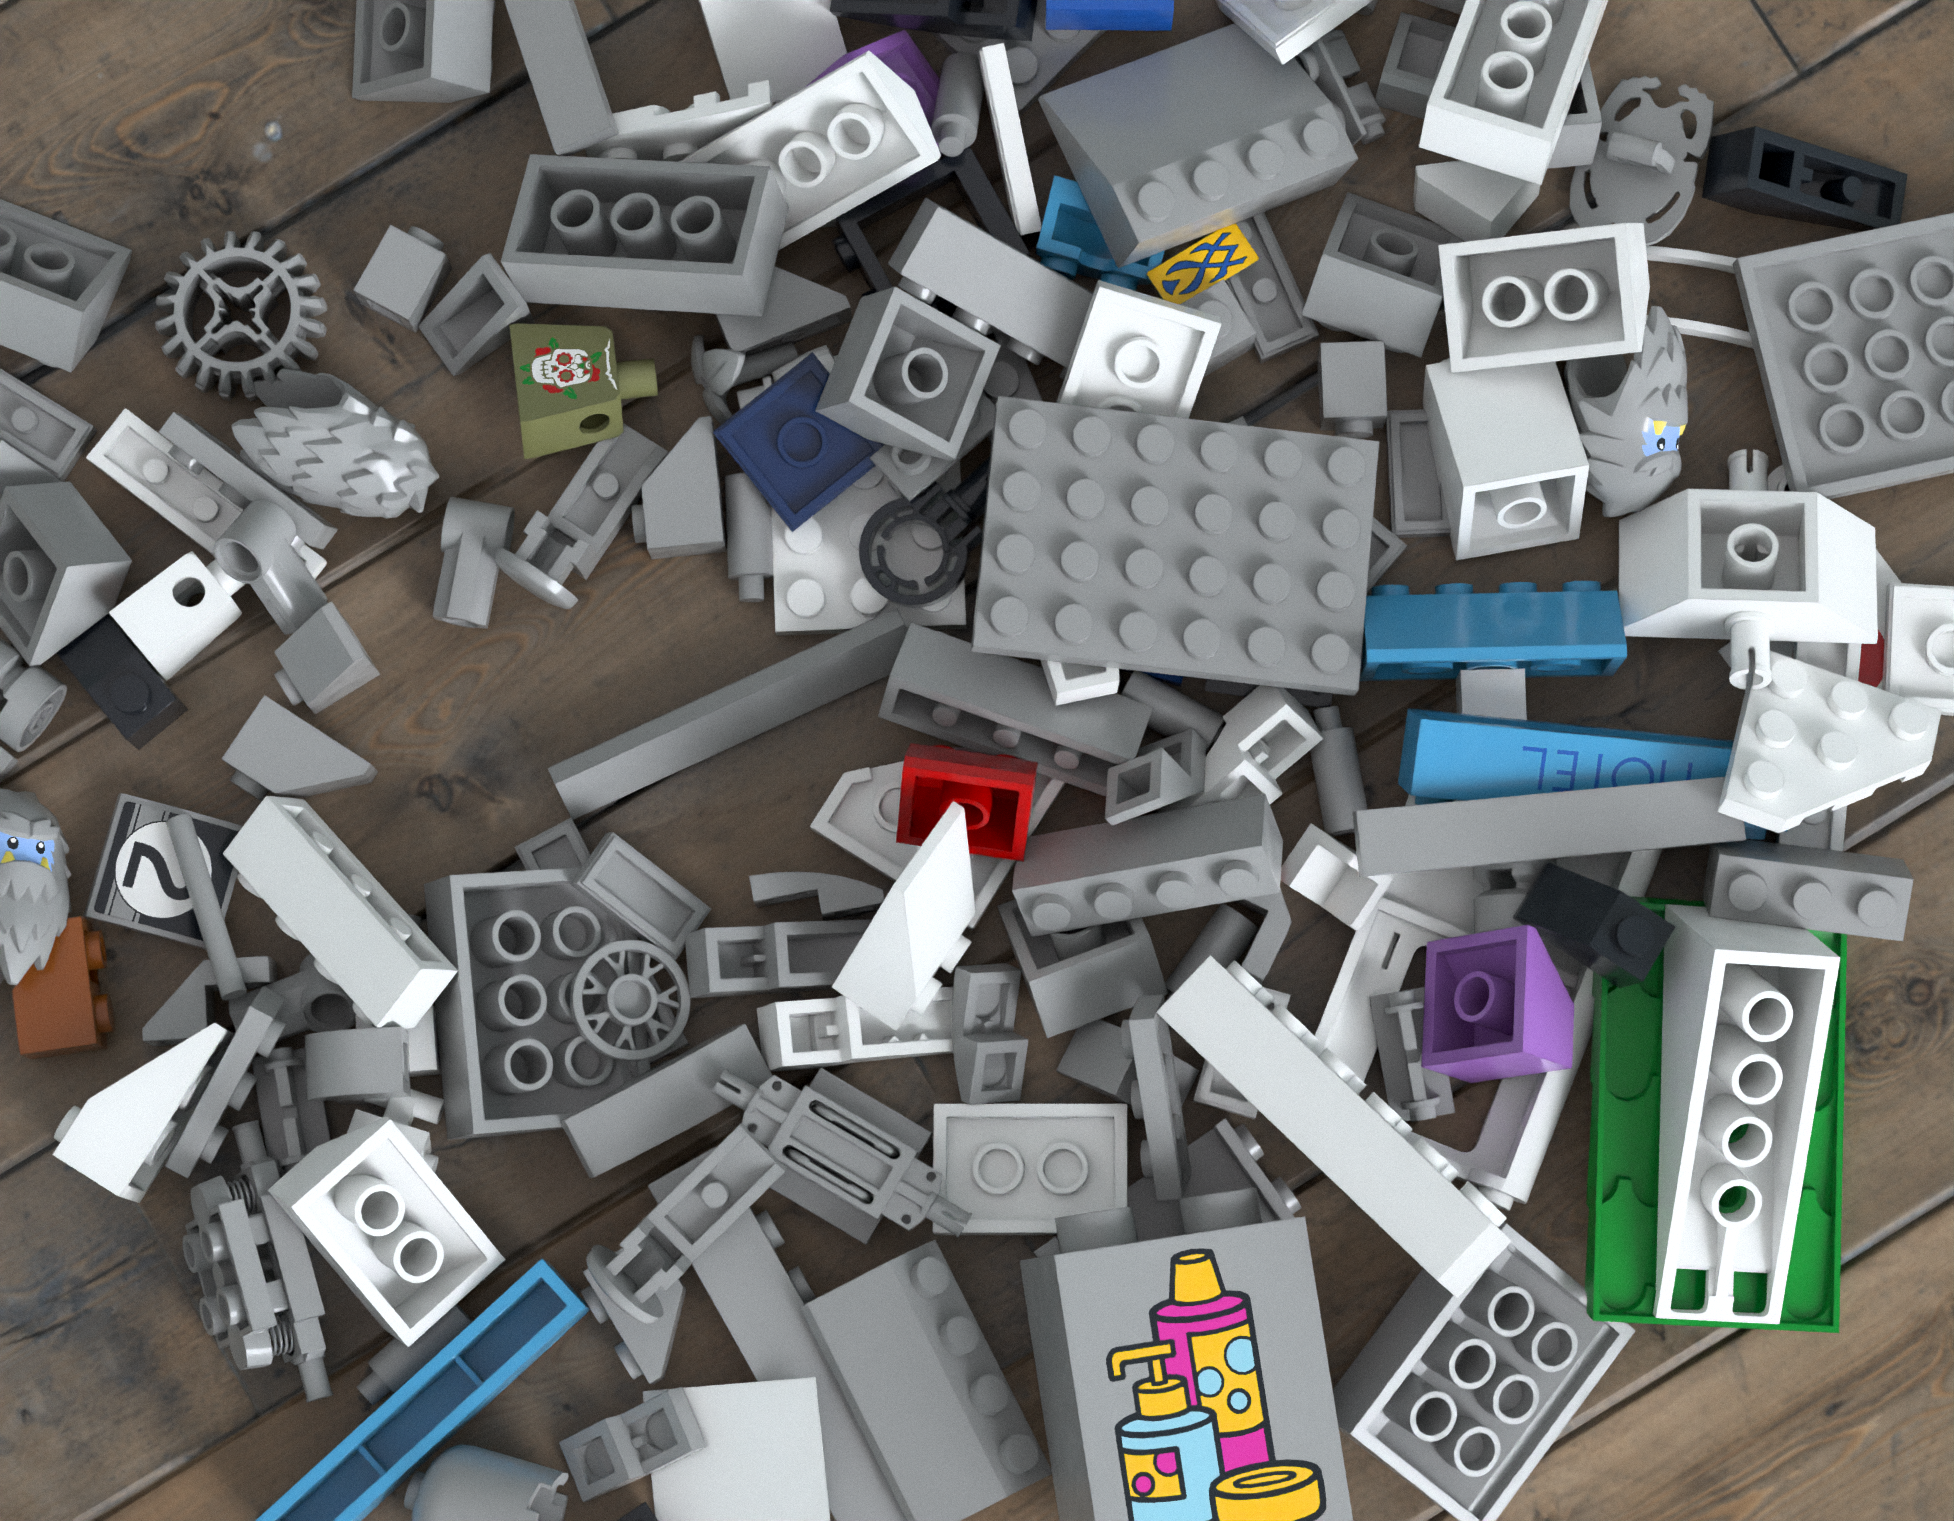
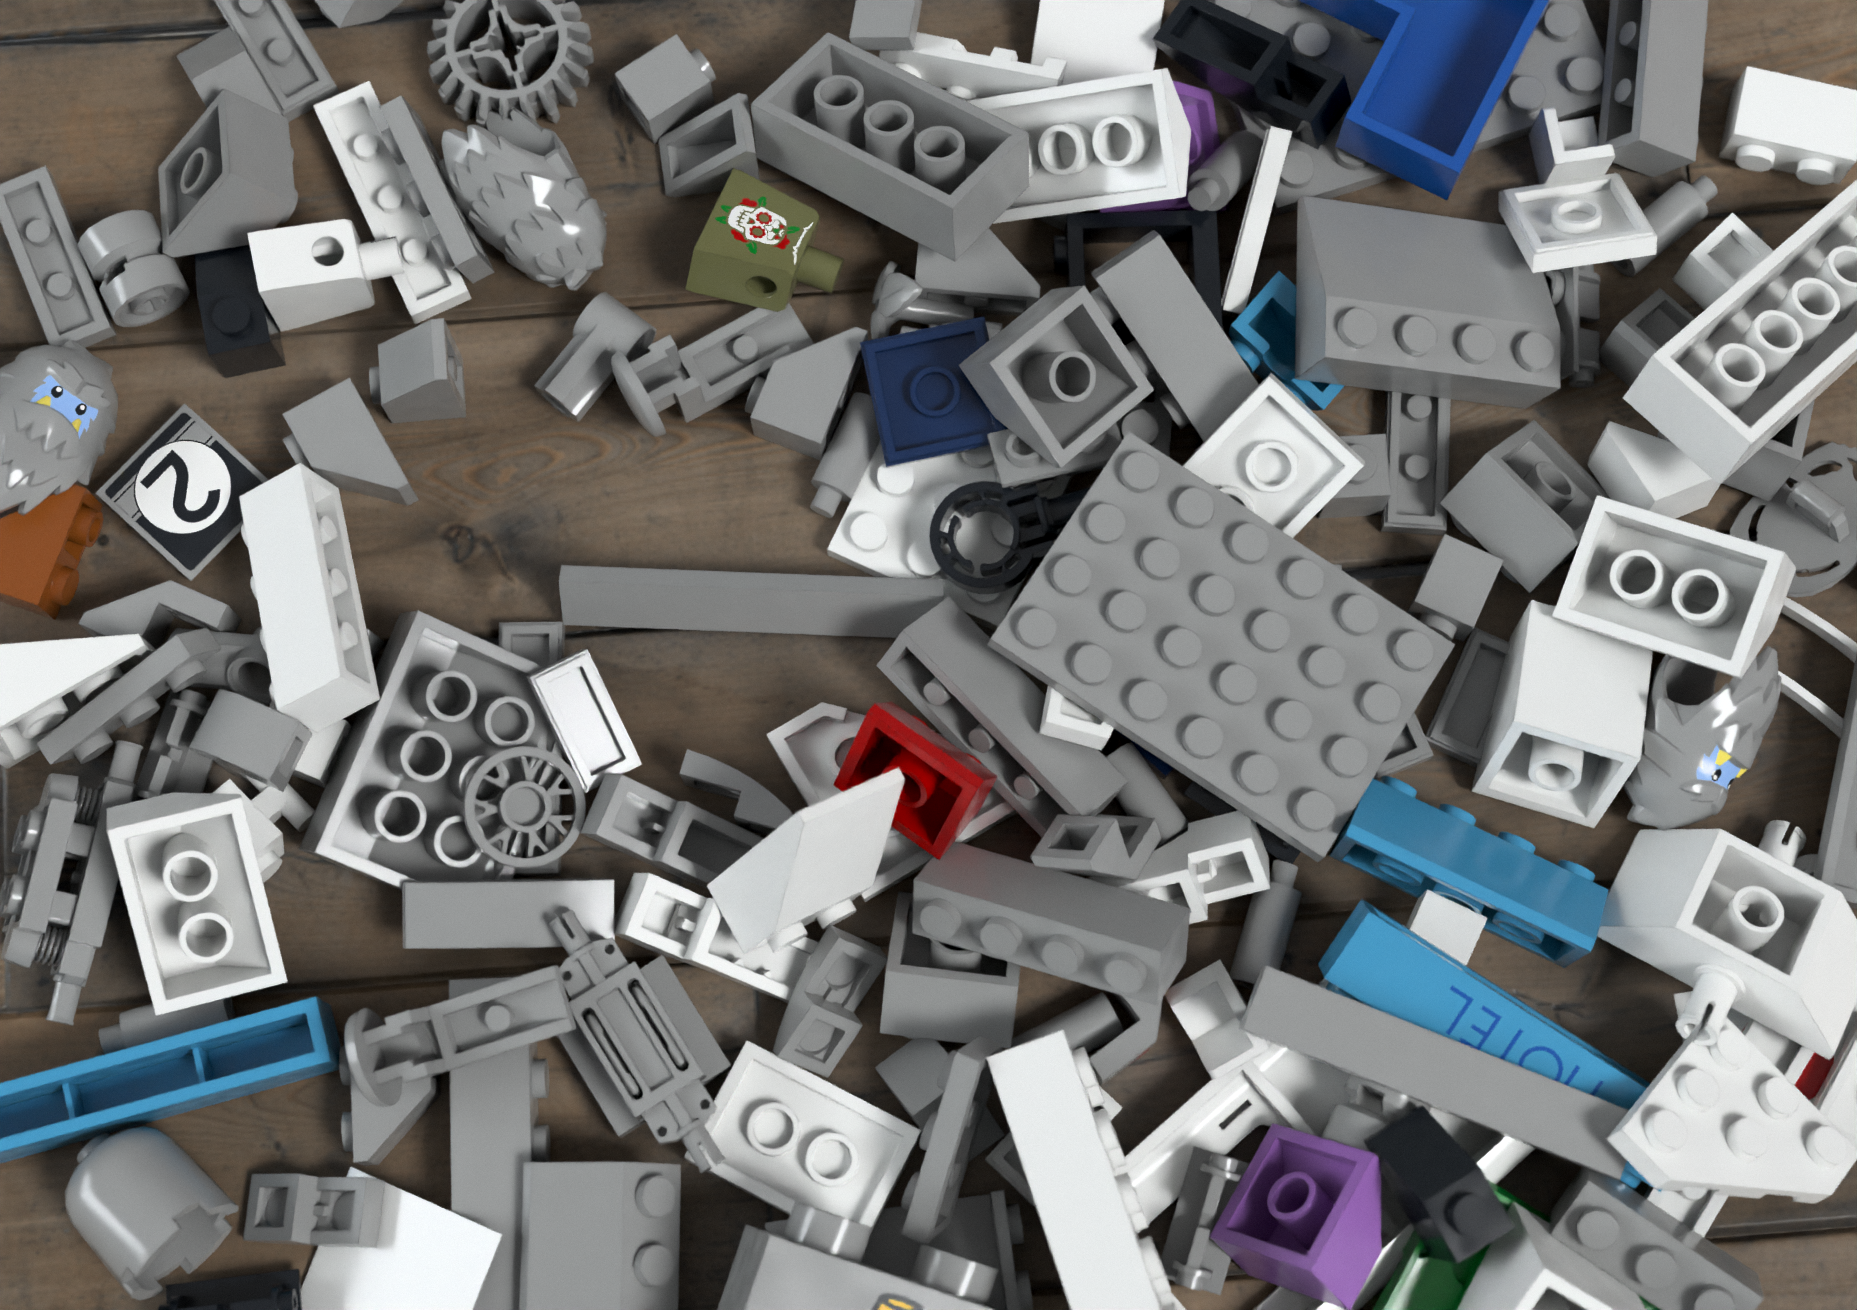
camera: 25 degrees right, 5 degrees down
(206, 907) = (197, 535): light grey bar -> none
(260, 553) = (410, 251): light grey piece -> none
(1203, 265) = (1389, 414): yellow sticker -> none

